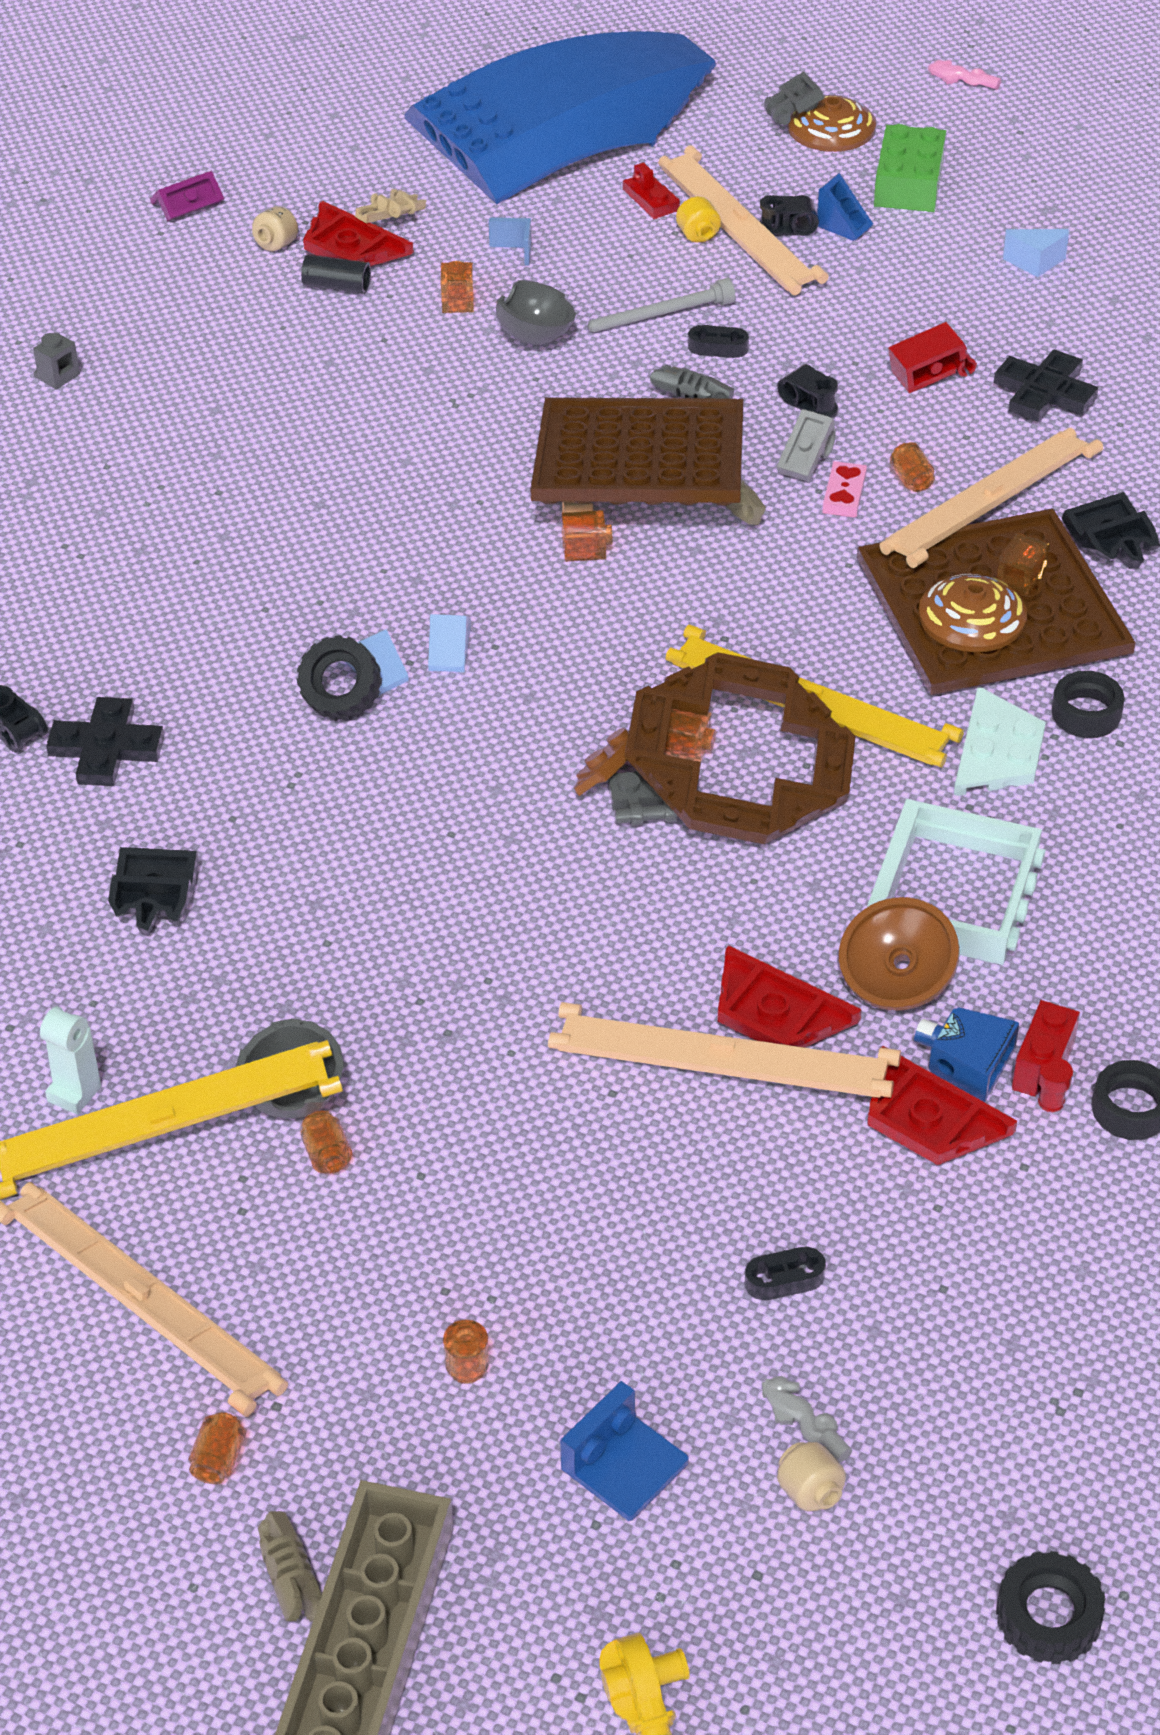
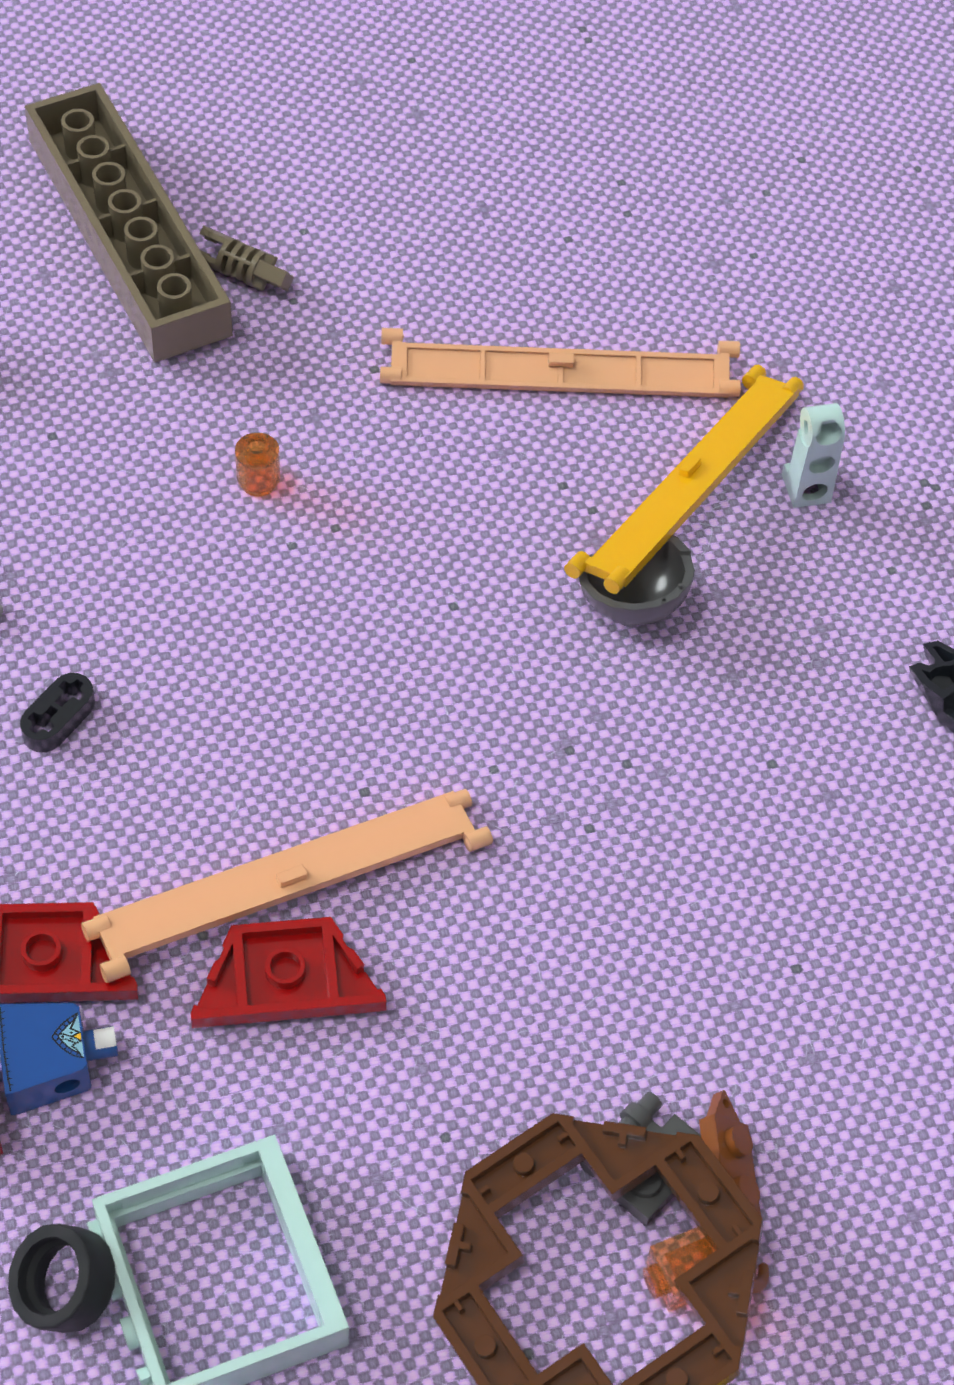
camera: 135 degrees right, 10 degrees up
(216, 1448) = (376, 298): clear orange brick -> none
(325, 1142) = (545, 559): clear orange brick -> none
(620, 1454) = (65, 476): blue bracket -> none
(894, 933) = (195, 1099): dark orange dish -> none
(1039, 931) = (29, 1271): none -> black tyre

